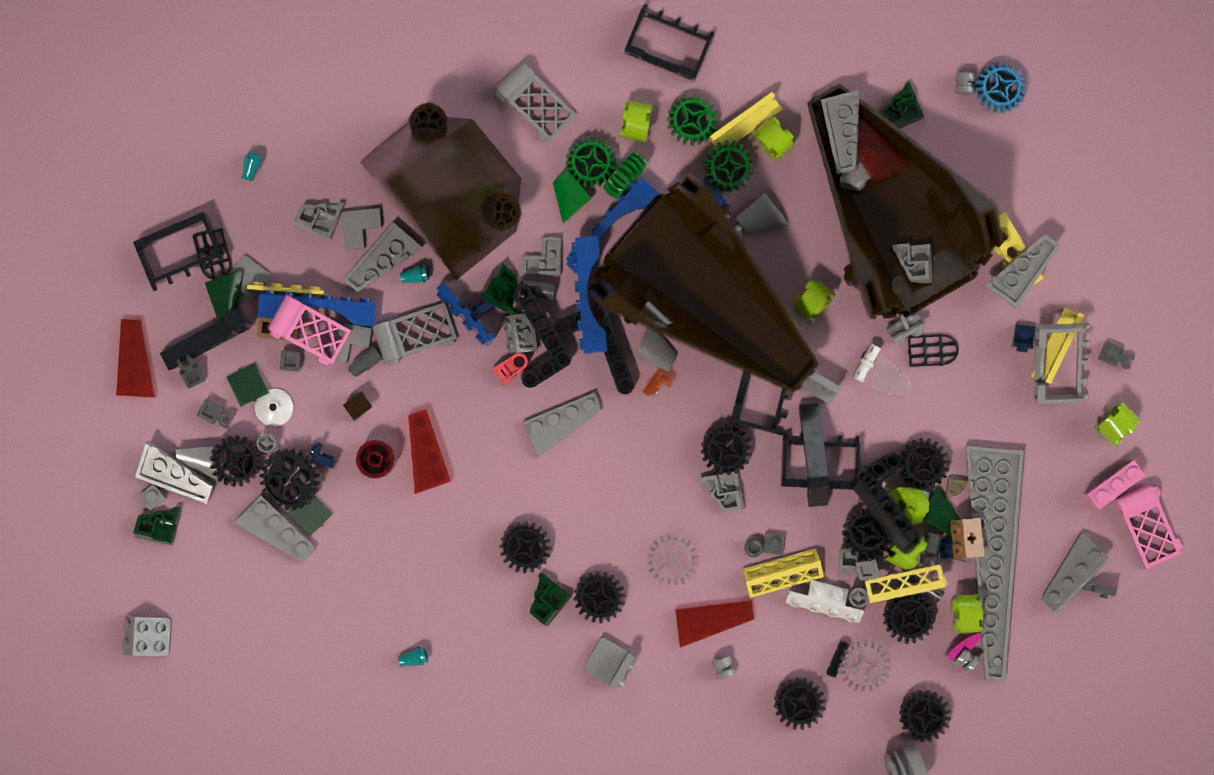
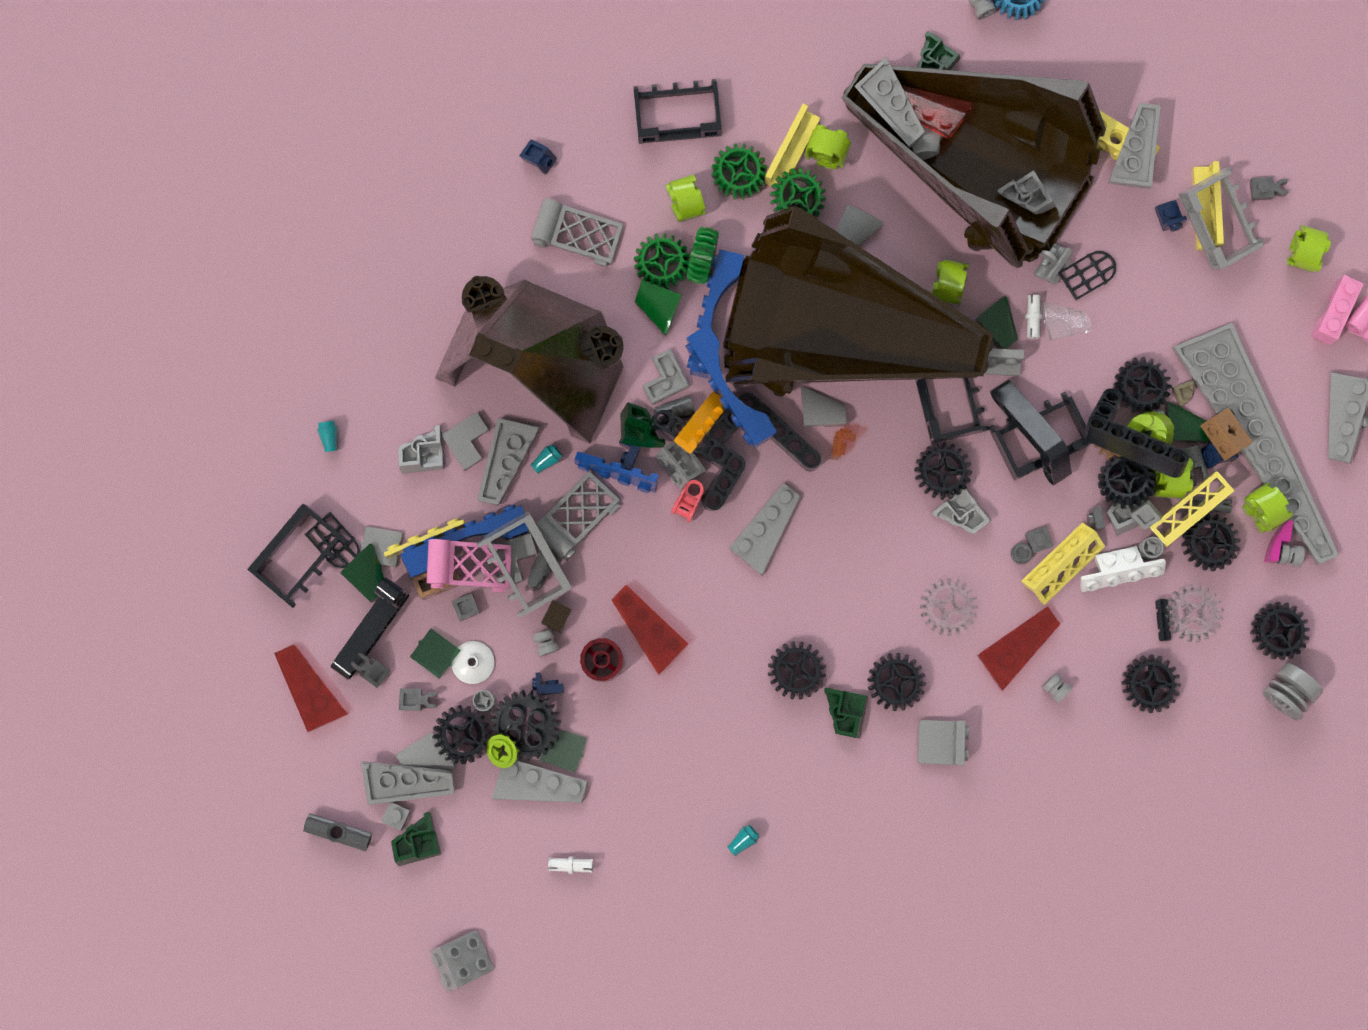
camera: 25 degrees left, 5 degrees down
(109, 495) = (324, 828): none -> dark grey piece
(254, 488) = (494, 752): none -> lime gear
(269, 606) = (570, 865): none -> white pin
(337, 426) = (547, 647): none -> light grey wheel
(377, 382) = (541, 600): none -> light grey hinge
(536, 22) = (538, 156): none -> dark blue bracket
(550, 312) = (700, 423): none -> light orange hinge
(827, 551) = (1095, 518): none -> flat silver plate
(836, 354) = (999, 322): none -> dark green slope

